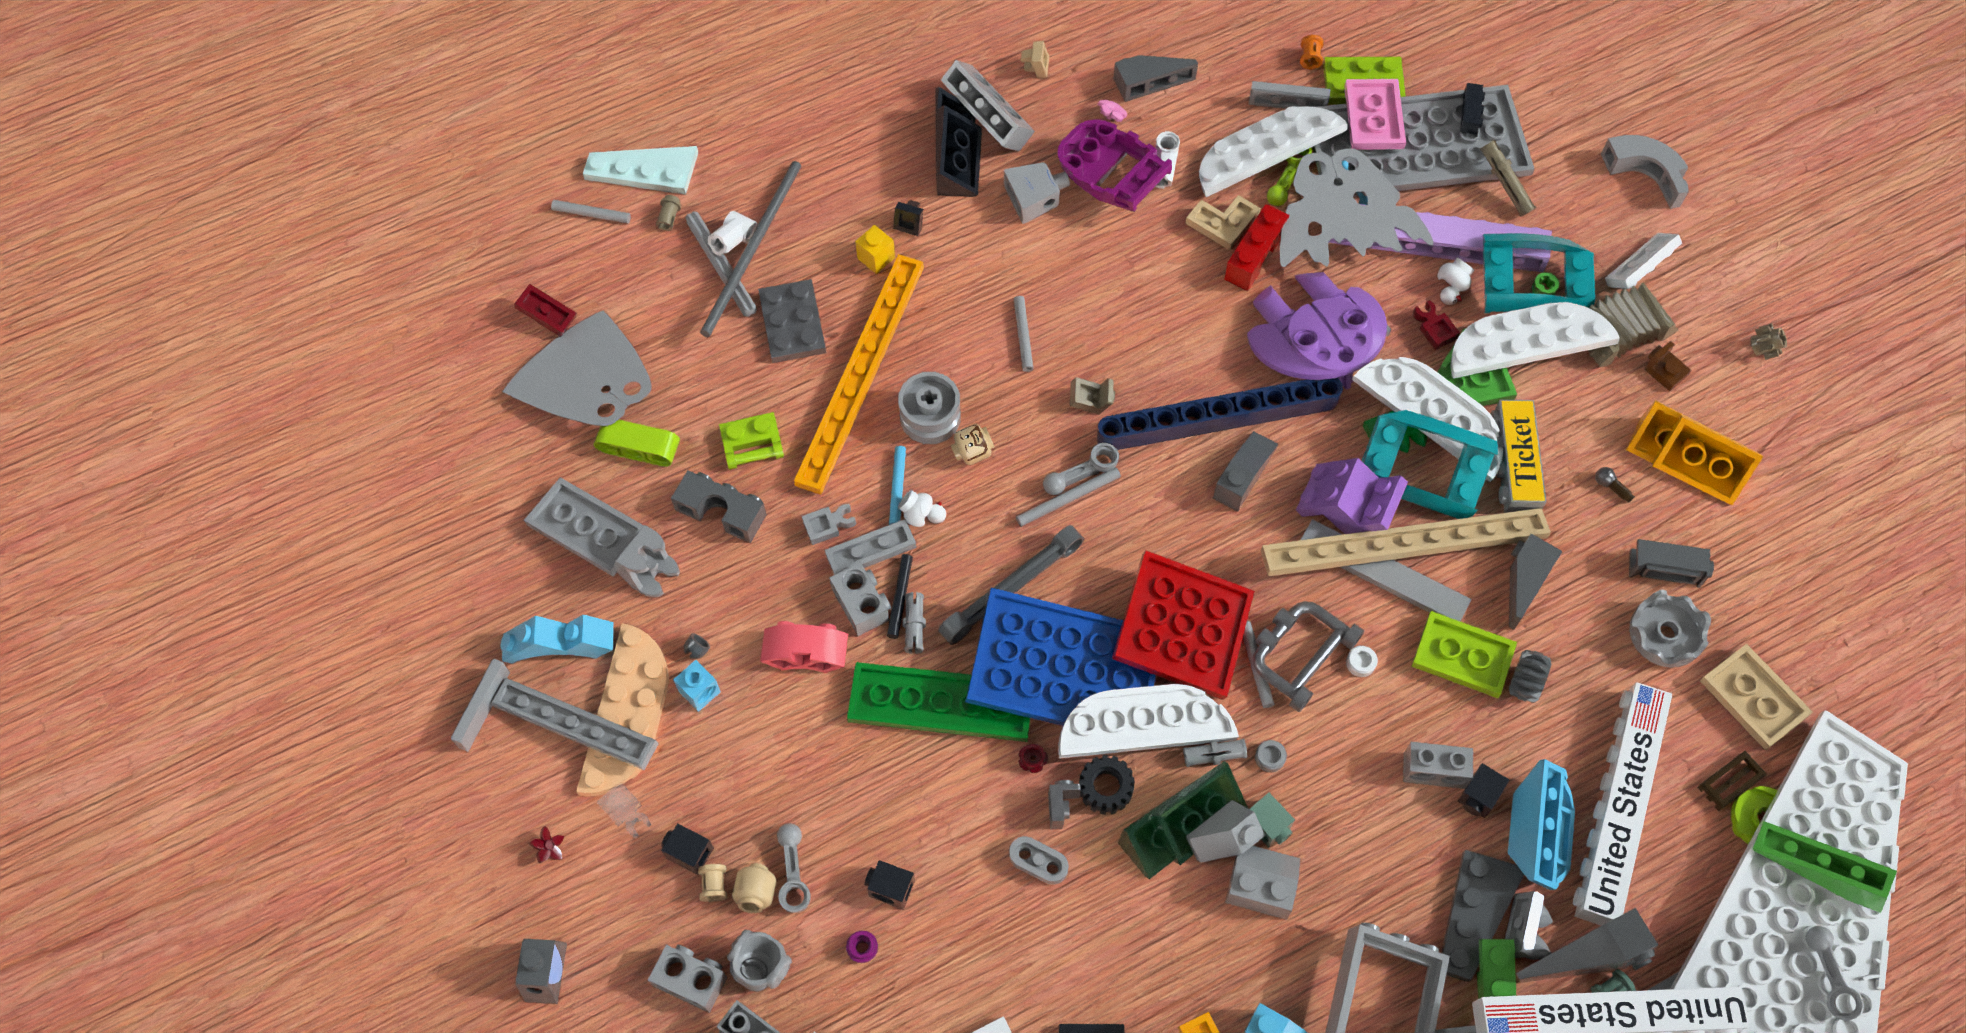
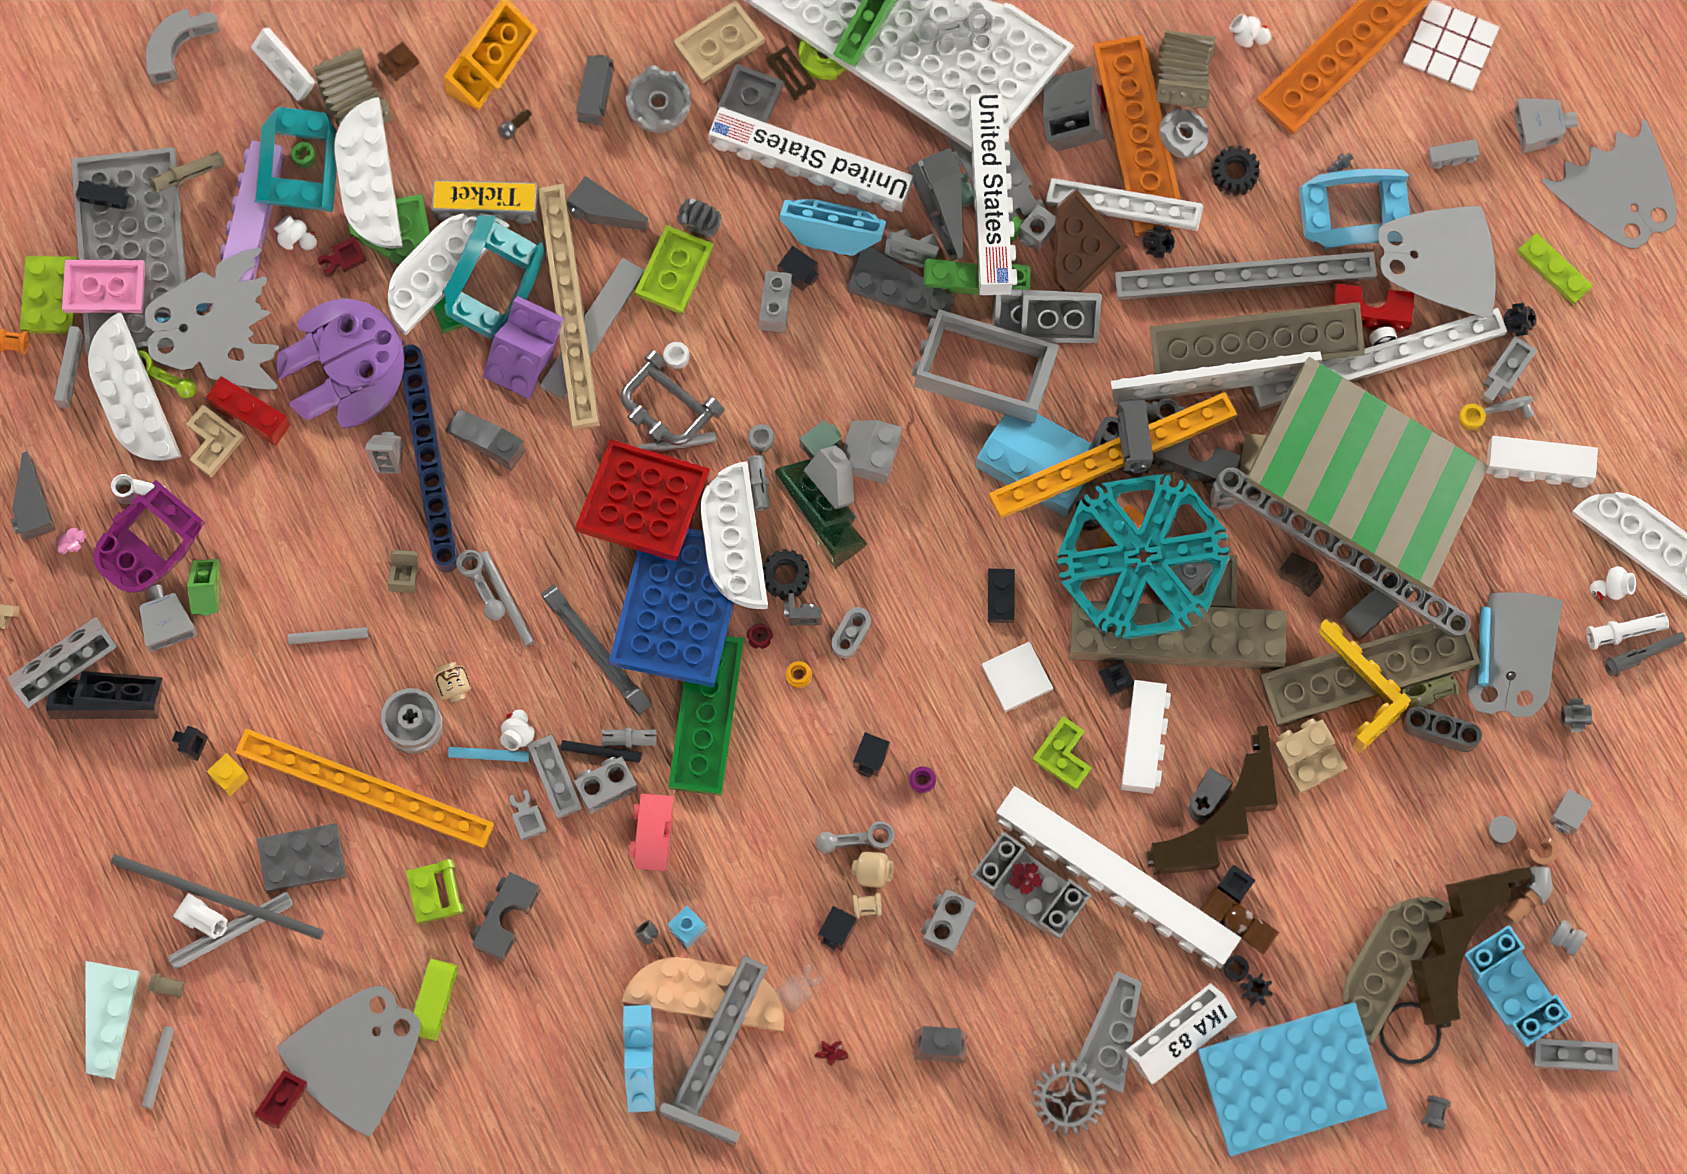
camera: 90 degrees left, 10 degrees up
(603, 537) = (533, 1025): light grey hinge -> none
(758, 961) = (936, 861): light grey hair -> none
(988, 793) = (798, 666): none -> light orange plate
(1069, 220) = (204, 586): none -> bright green slope
(1220, 366) = (385, 453): none -> light grey slope
(1695, 734) = (751, 93): none -> flat silver plate

